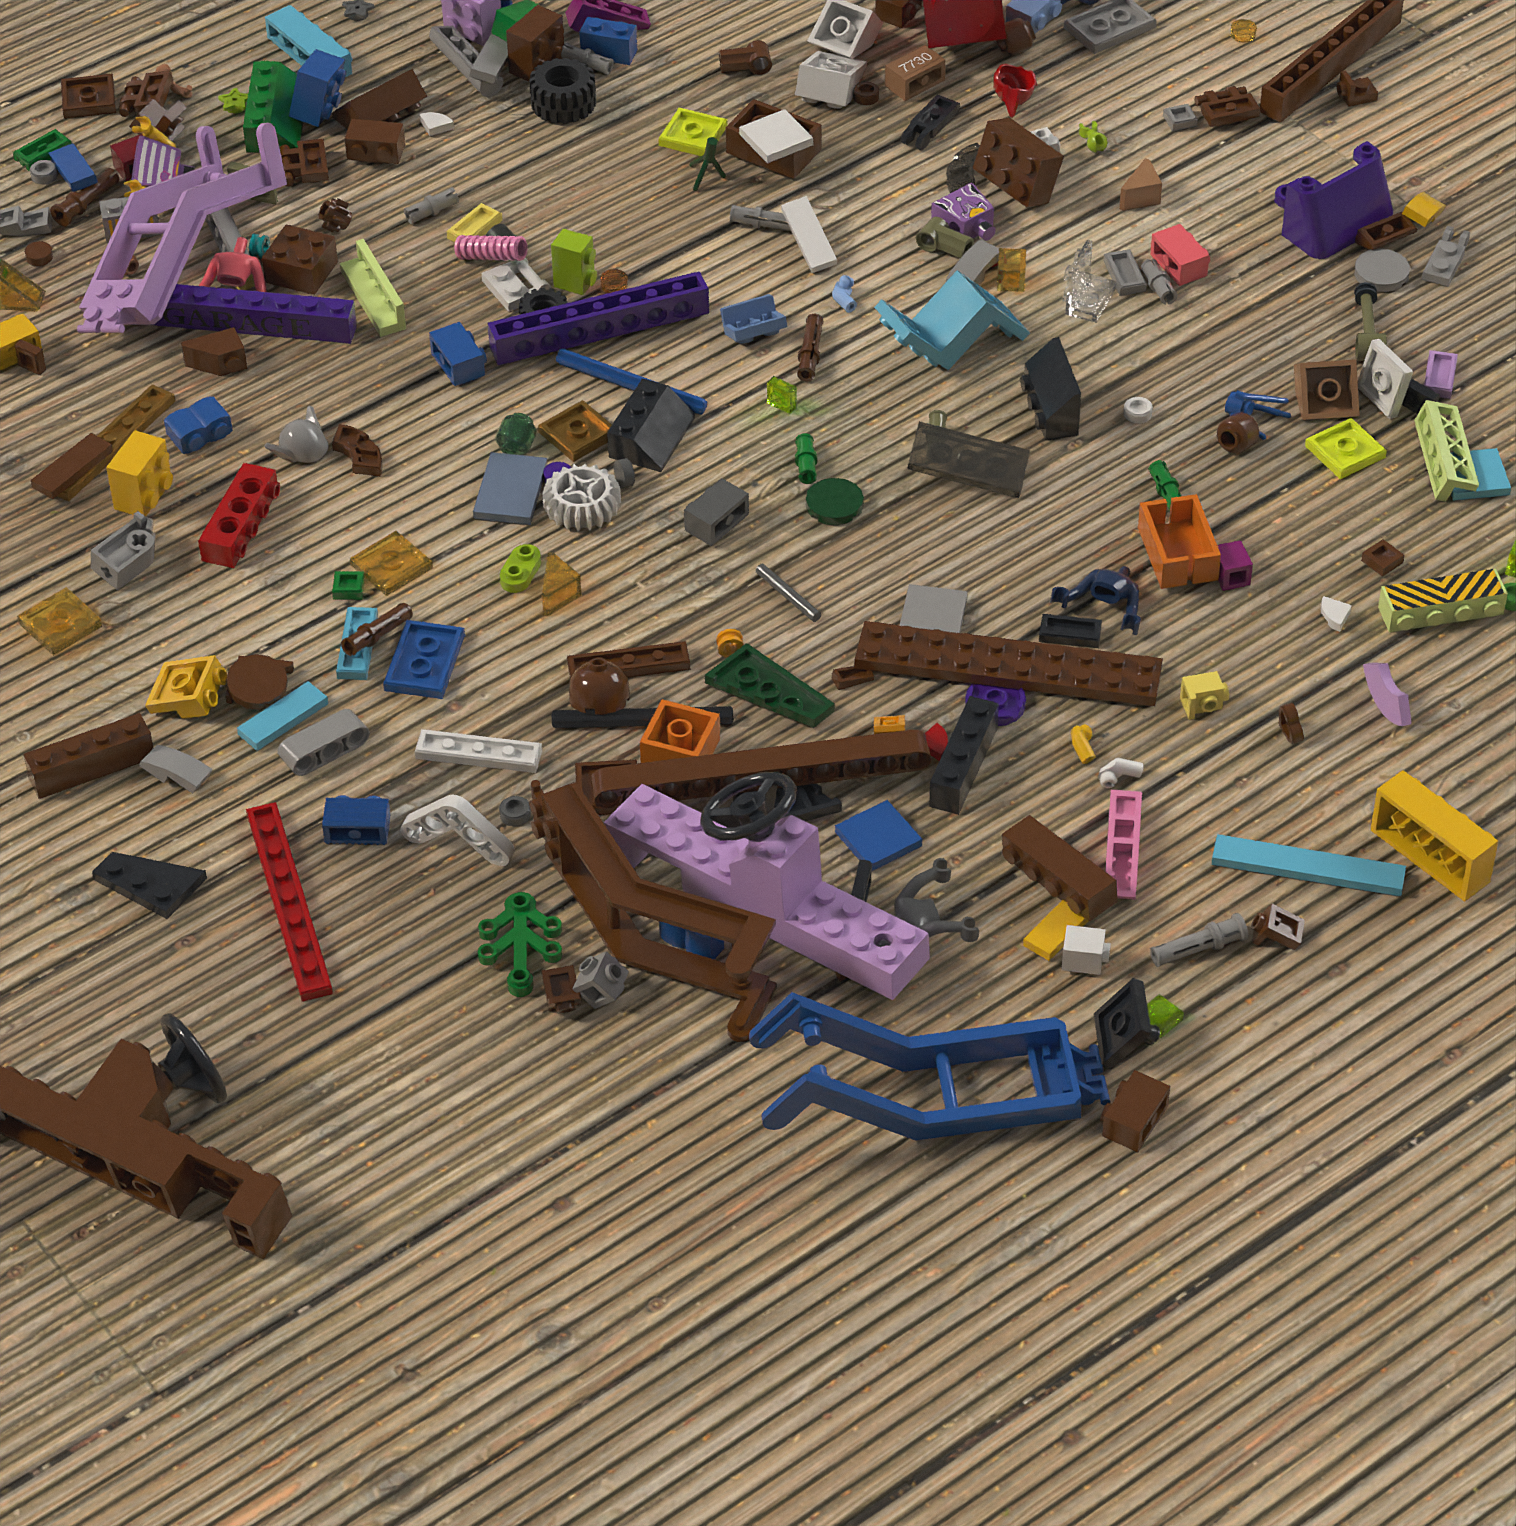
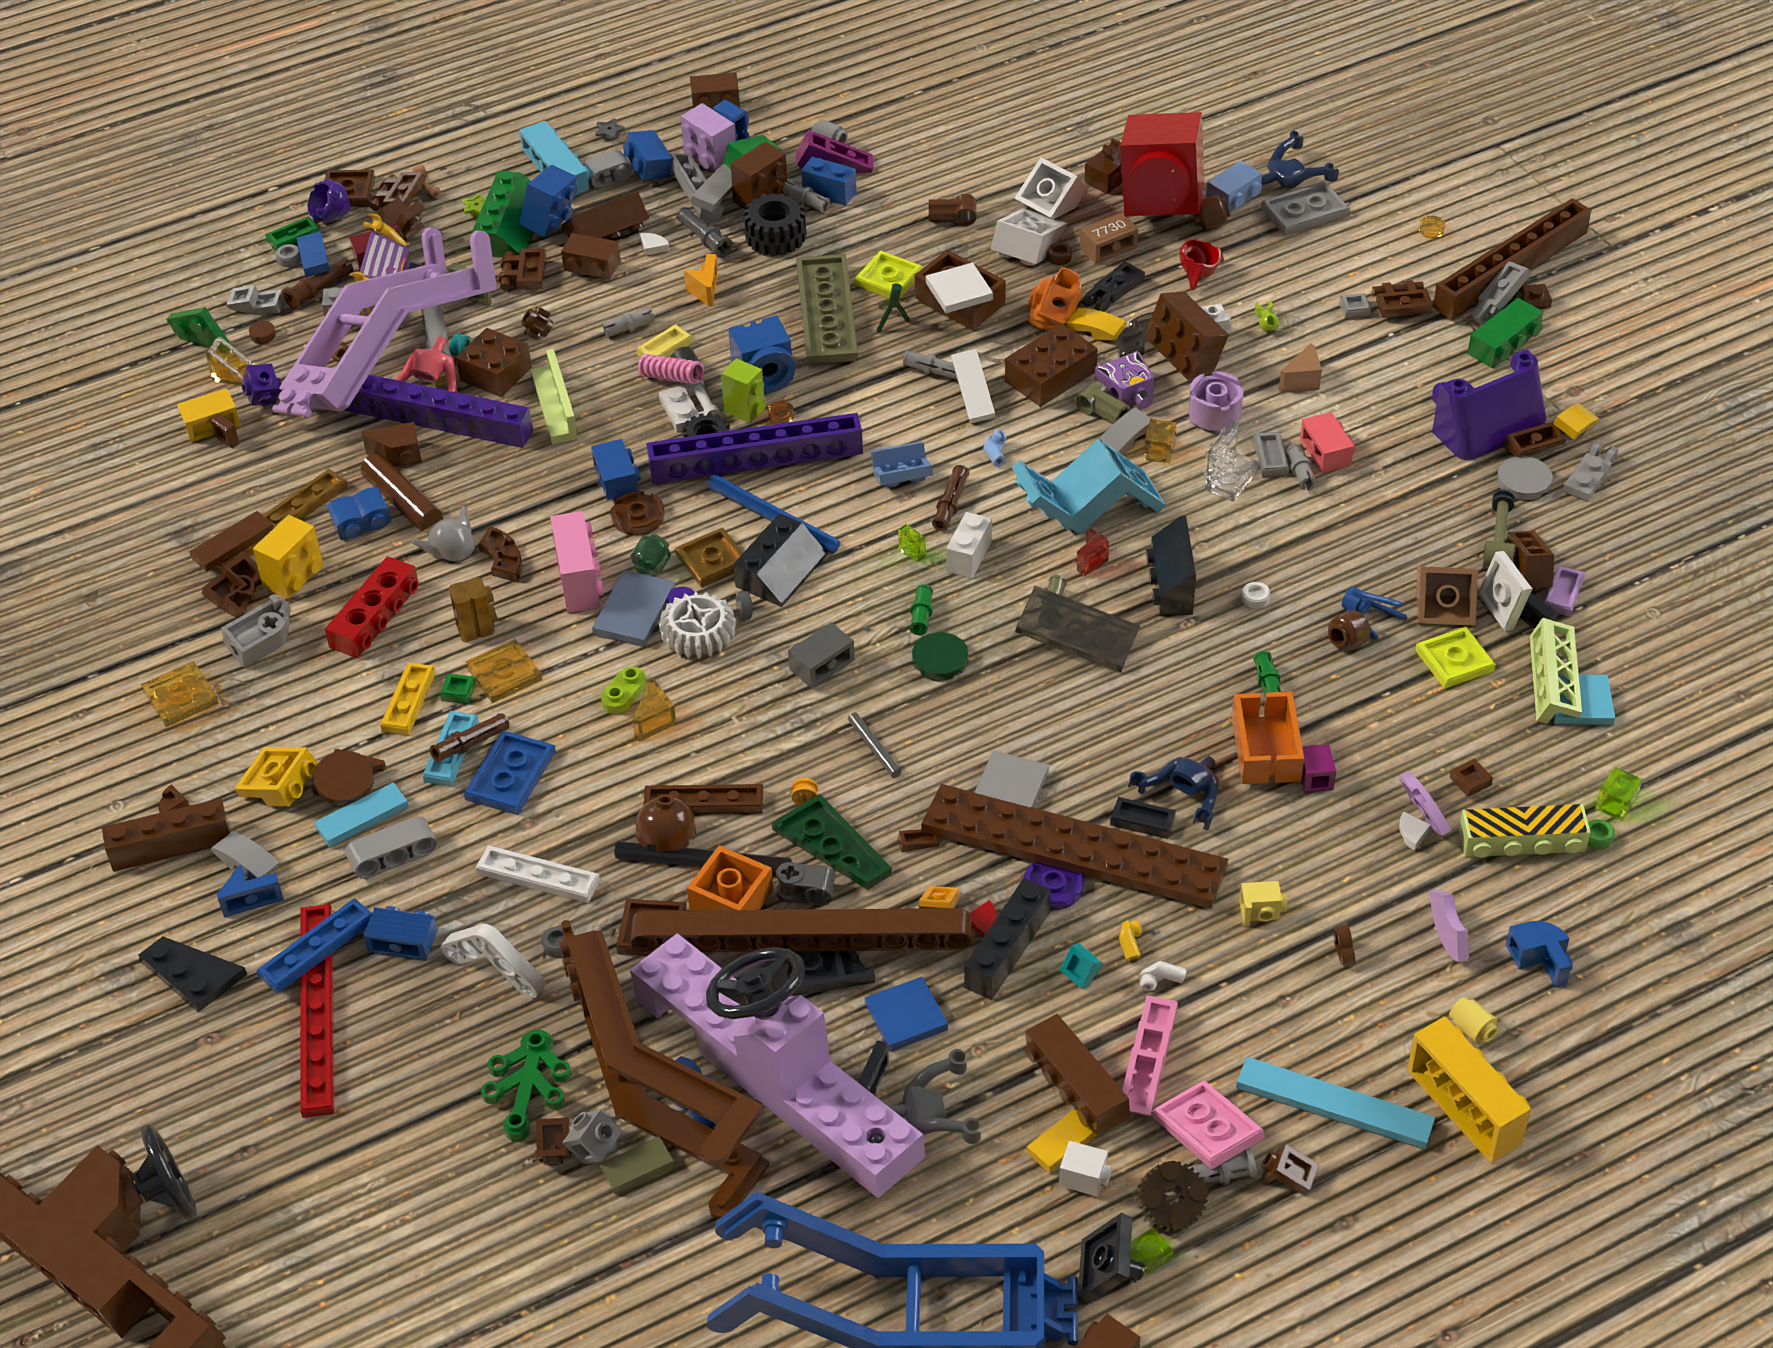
camera: 10 degrees right, 0 degrees up
(57, 306) = (261, 384): none -> dark purple brick
(74, 111) = (328, 201): none -> dark purple hair
(81, 723) = (172, 800): none -> reddish brown tile
(85, 511) = (234, 586): none -> reddish brown slope
(187, 803) = (243, 895): none -> blue slope
(235, 399) = (400, 492): none -> reddish brown brick
(273, 841) = (315, 946): none -> blue tile
(299, 600) = (408, 699): none -> yellow tile
(347, 505) = (472, 609): none -> pearl gold brick
(369, 49) = (608, 168): none -> light grey beam
(409, 31) = (648, 155): none -> blue brick
(443, 447) = (576, 561): none -> bright pink brick
(489, 395) = (637, 513): none -> reddish brown tile
(495, 109) = (709, 236): none -> dark grey pin
(499, 157) = (703, 281): none -> light orange slope
(587, 213) = (767, 348): none -> blue piece
(637, 172) = (826, 309): none -> olive plate
(648, 1002) = (637, 1165): none -> olive tile
(754, 727) = (808, 885): none -> dark grey piece
(840, 390) = (969, 545): none -> white brick
(879, 126) = (1064, 287): none -> orange piece
(884, 205) = (1050, 365): none -> reddish brown brick
(926, 160) = (1101, 324): none -> yellow slope
(967, 386) = (1093, 553): none -> clear red bracket
(1040, 771) = (1080, 966): none -> teal tile
(1060, 225) = (1215, 401): none -> lavender brick
(1182, 948) = (1190, 1193): none -> dark brown brick
(1193, 897) = (1208, 1124): none -> bright pink tile
(1325, 89) = (1500, 292): none -> light grey hinge
(1337, 129) = (1505, 333): none -> green brick
(1343, 584) = (1424, 802): none -> lavender tile
(1407, 344) = (1532, 559): none -> reddish brown slope
(1429, 774) = (1474, 1020): none -> light yellow brick
(1475, 701) = (1541, 943): none -> blue brick

